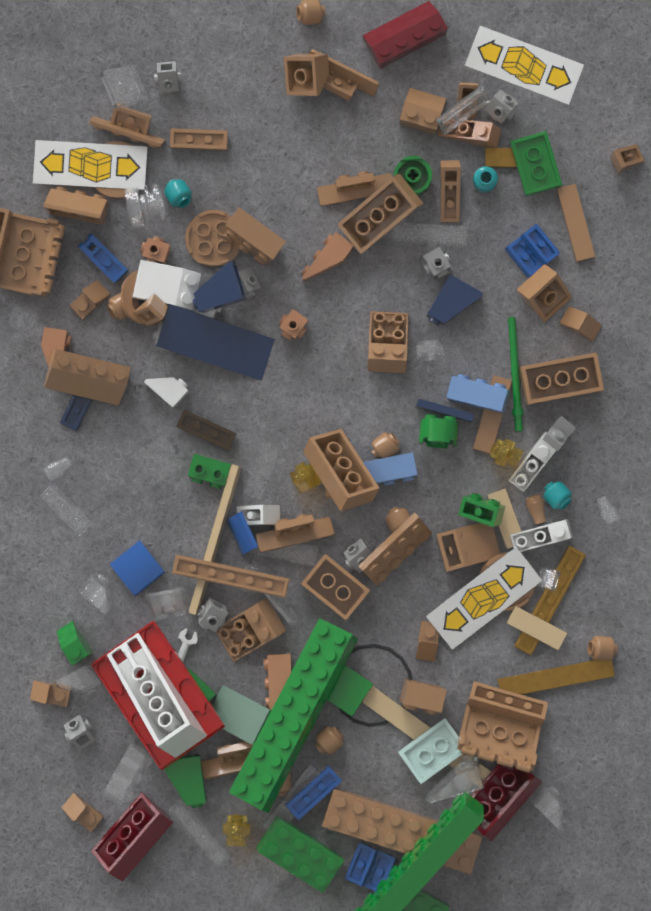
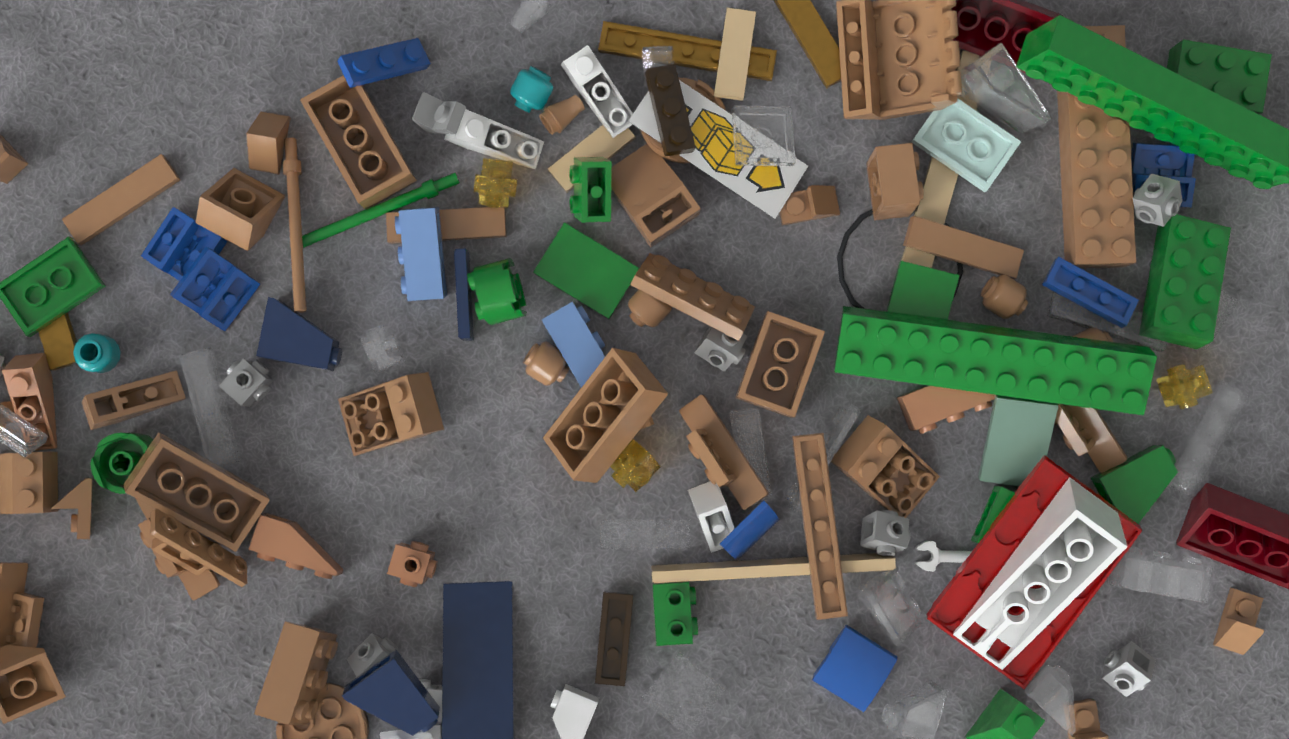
camera: 110 degrees left, 0 degrees up
(345, 200) = (194, 550): none -> medium nougat bracket
(355, 853) = (1157, 200): none -> light grey brick
(368, 726) = (963, 247): none -> medium nougat tile
(400, 141) = (80, 499): none -> medium nougat slope
(434, 490) = (586, 270): none -> green tile
(479, 627) = (763, 135): none -> clear tile
(500, 262) = (215, 288): none -> blue slope
(514, 574) = (670, 110): none -> dark brown plate
(558, 332) = (292, 170): none -> medium nougat bar
(603, 410) = (383, 62): none -> blue plate

